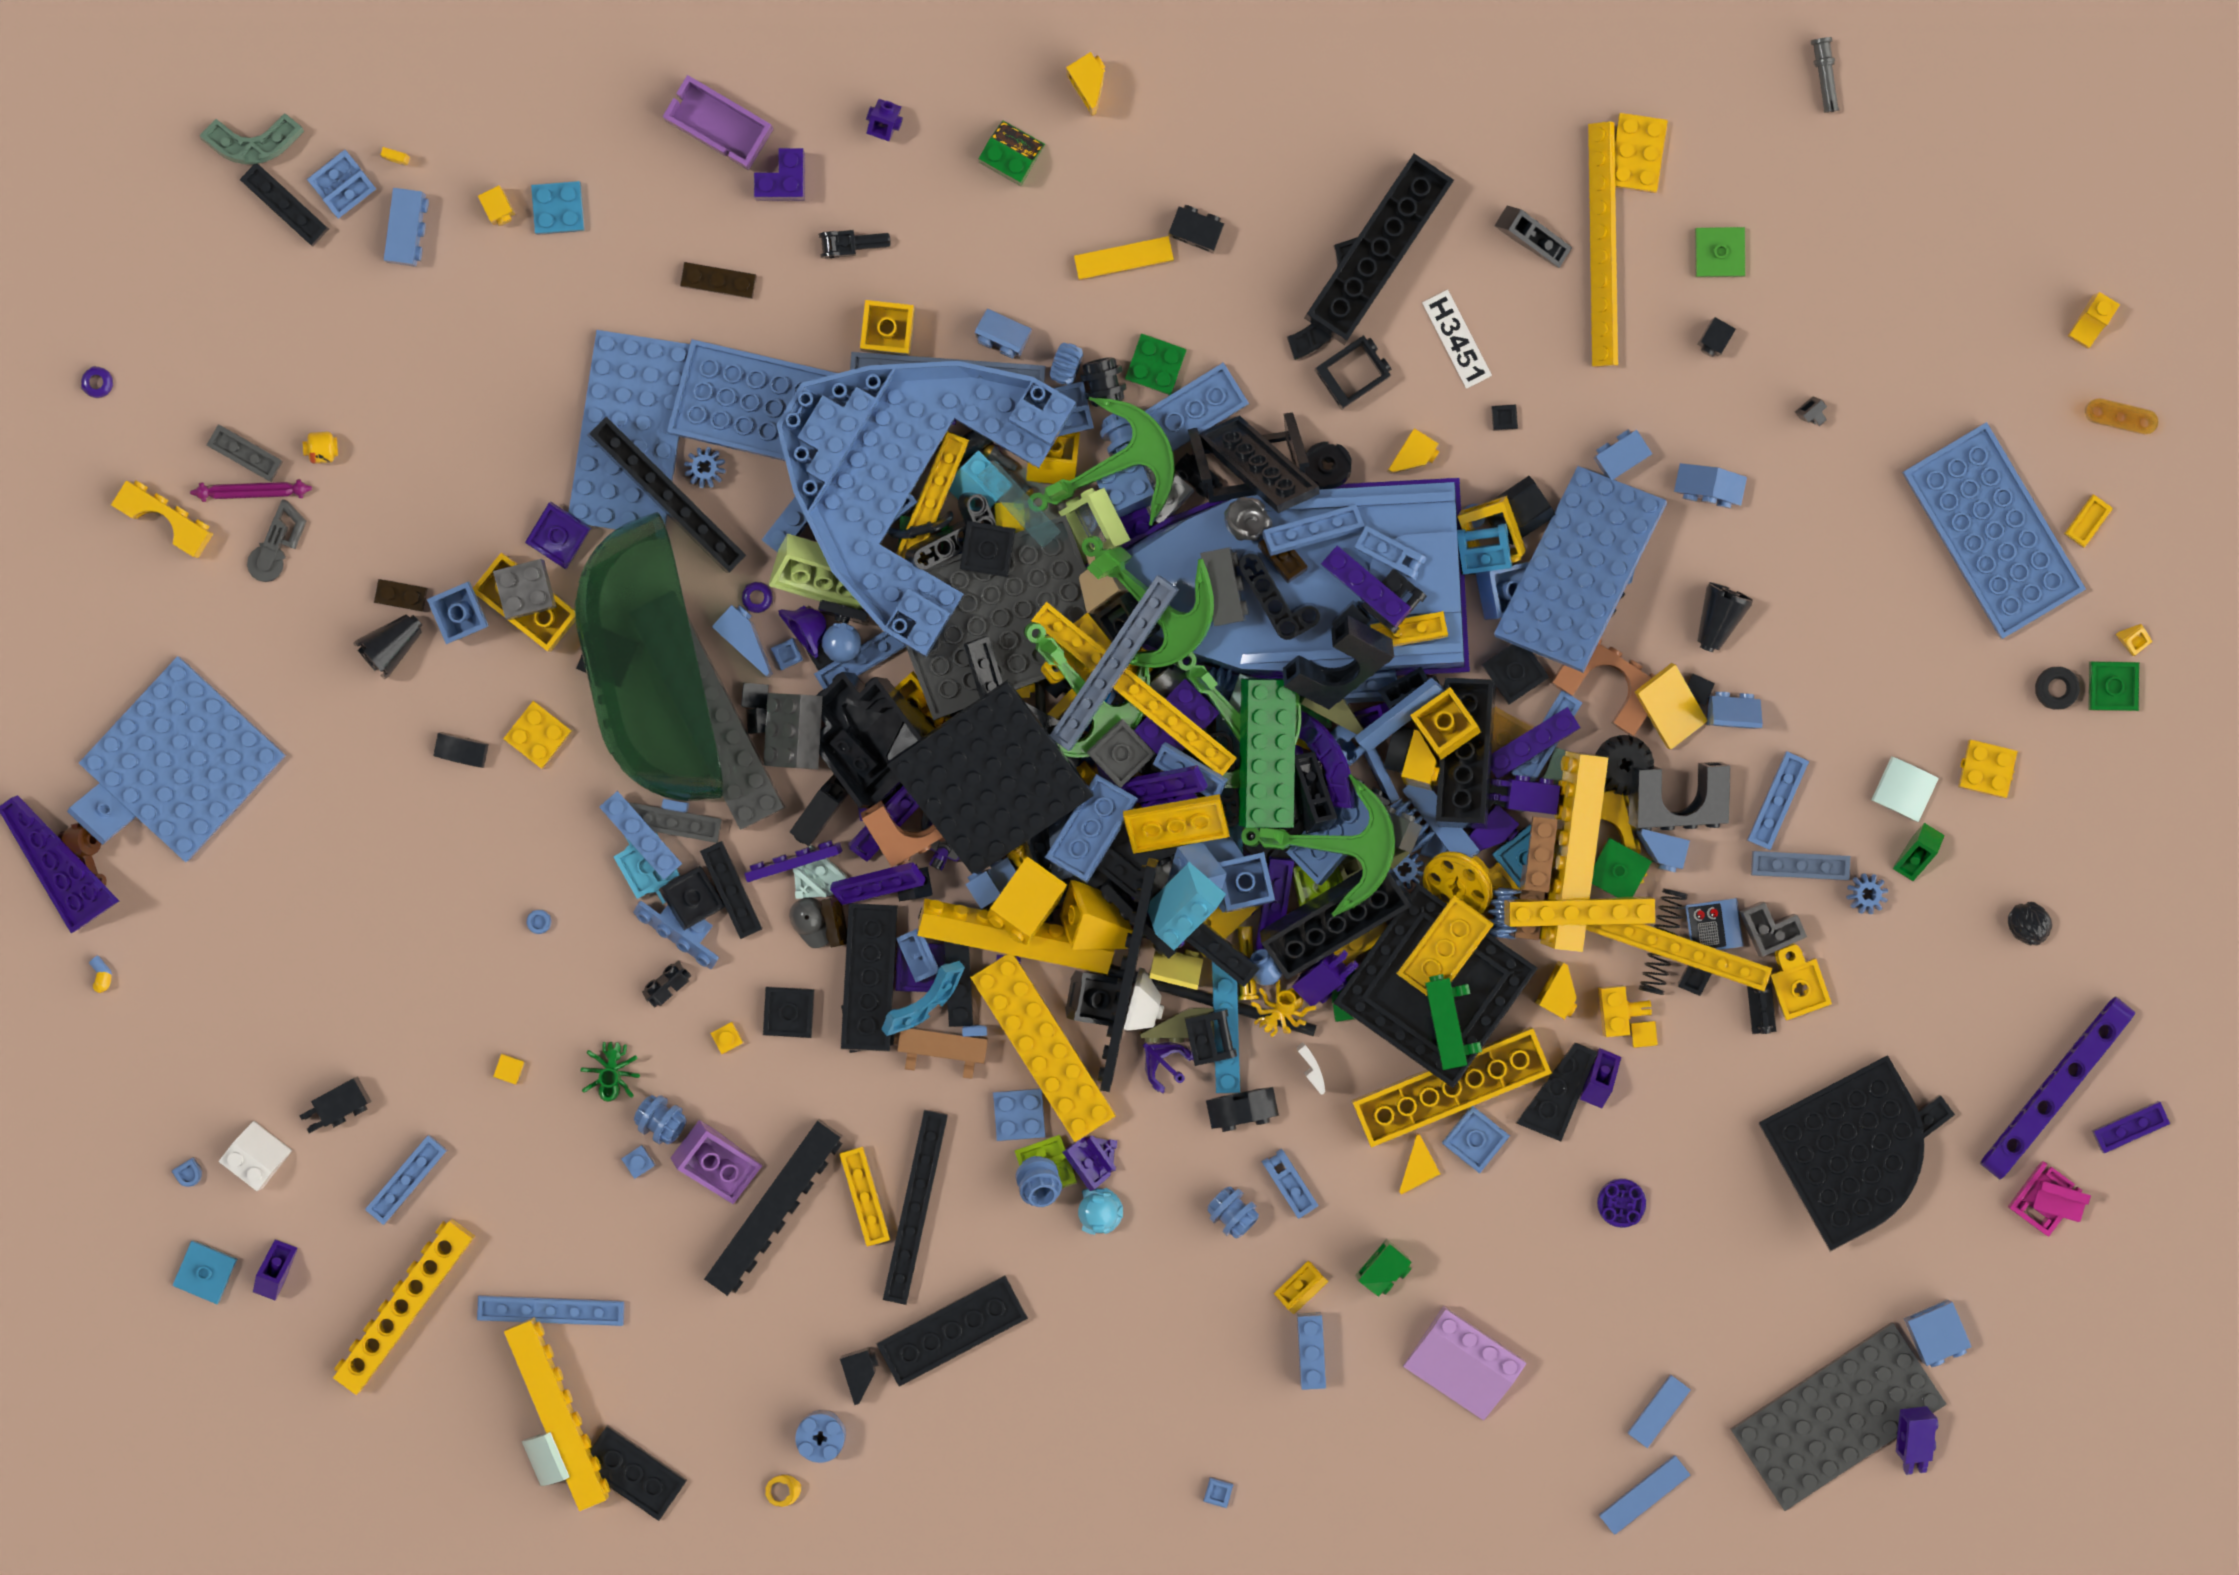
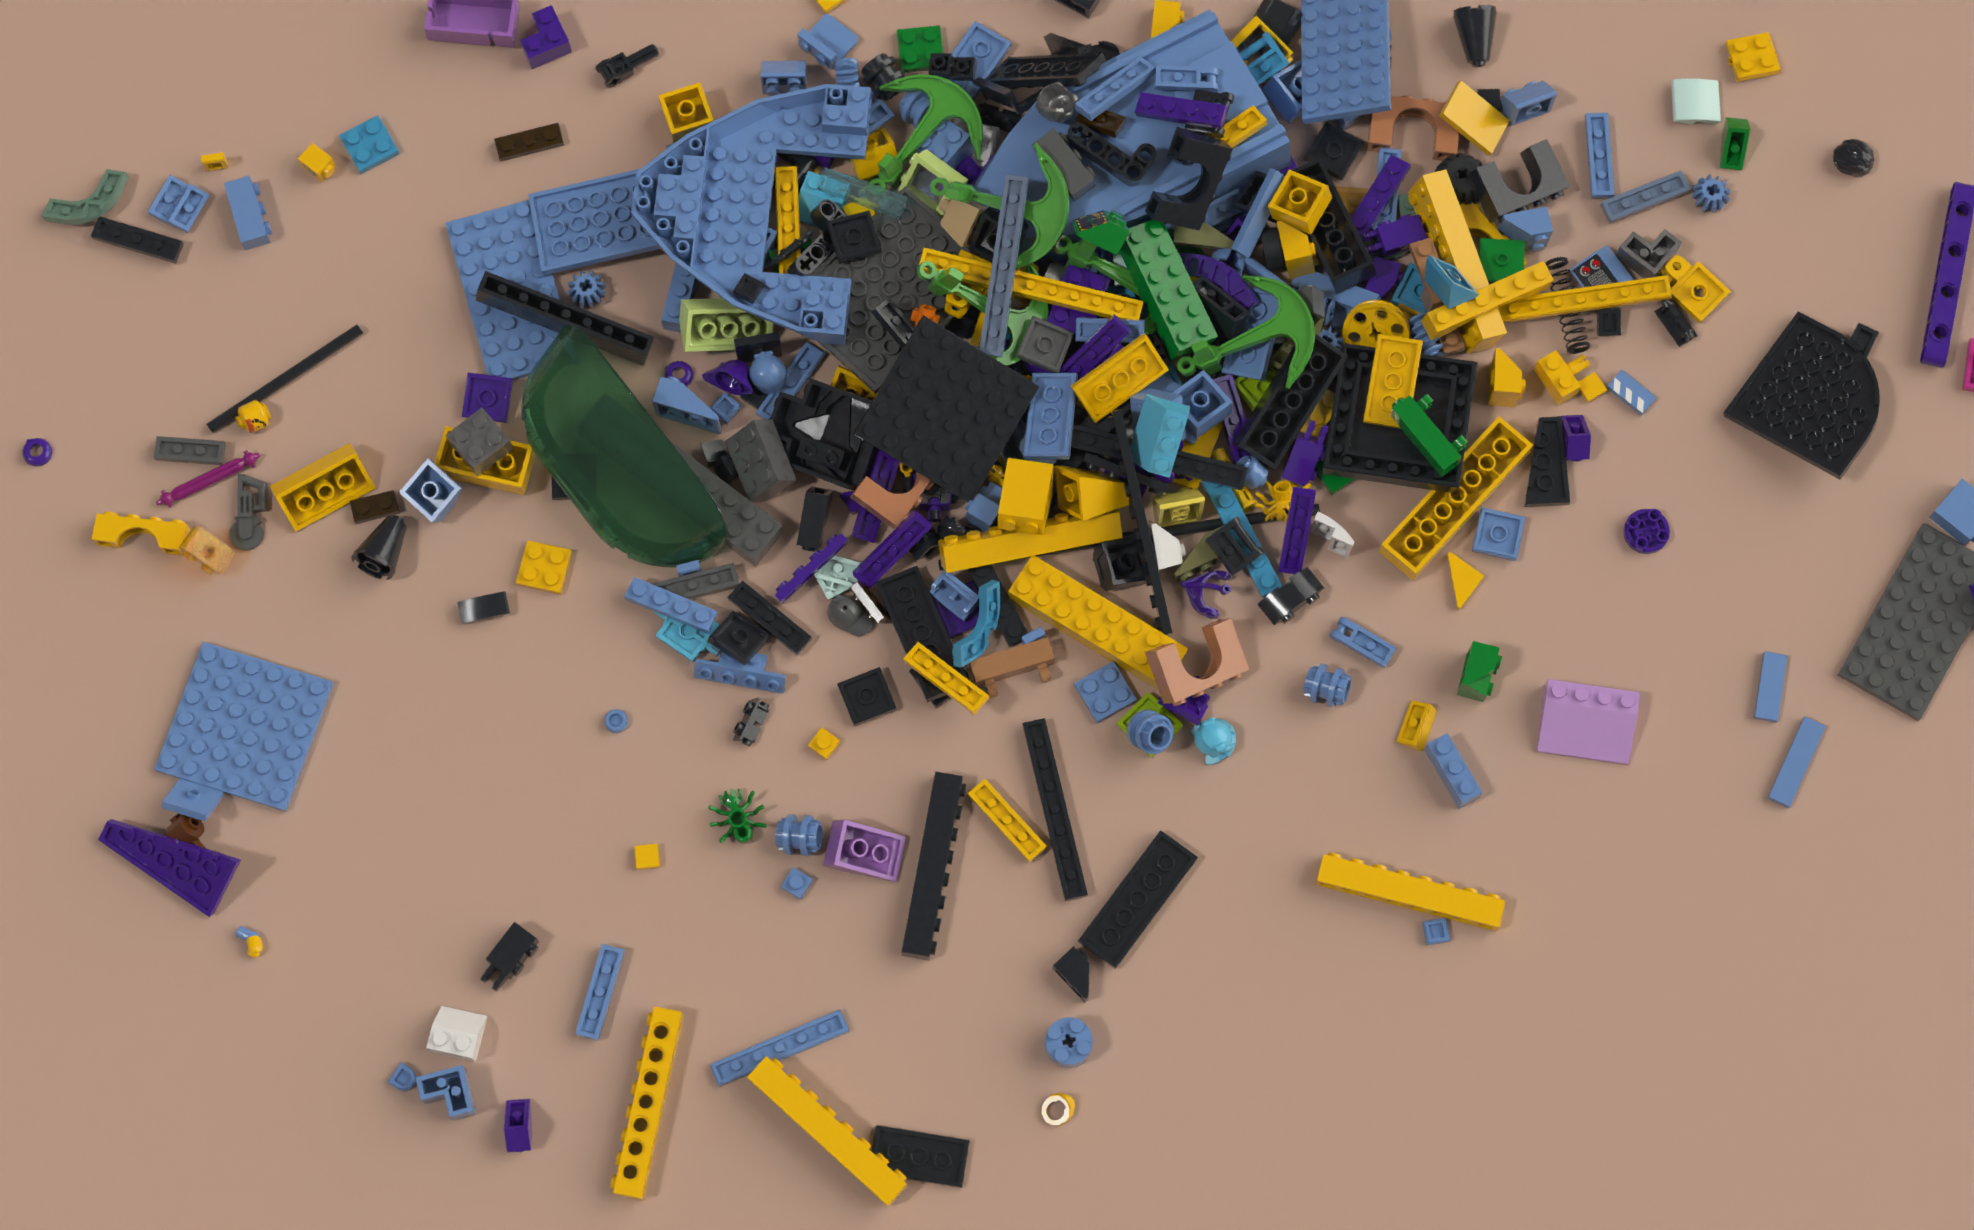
camera: 25 degrees left, 15 degrees down
(205, 1272) = (456, 1158): dark azure plate -> none
(228, 576) = (219, 555): none -> clear yellow brick
(229, 1207) = (450, 1085): none -> medium blue brick
(357, 552) = (322, 487): none -> yellow slope
(371, 419) = (287, 376): none -> black piece
(545, 1459) = (835, 1176): light aqua slope -> none
(856, 558) = (748, 288): none -> black tile
(867, 1039) = (946, 678): none -> yellow plate
(949, 889) = (951, 527): none -> black hair
(1016, 670) = (926, 310): none -> orange gear
(1065, 313) = (827, 41): none -> medium blue bracket
(1145, 1146) = (1226, 662): none -> nougat arch
(1176, 404) = (952, 67): none -> black slope
(1211, 1446) = (1410, 892): none -> yellow brick
(1227, 673) = (1103, 230): none -> green slope
(1277, 1051) = (1297, 530): none -> dark purple plate
(1547, 882) = (1448, 282): none -> dark azure slope
(1680, 1058) = (1631, 392): none -> medium blue tile

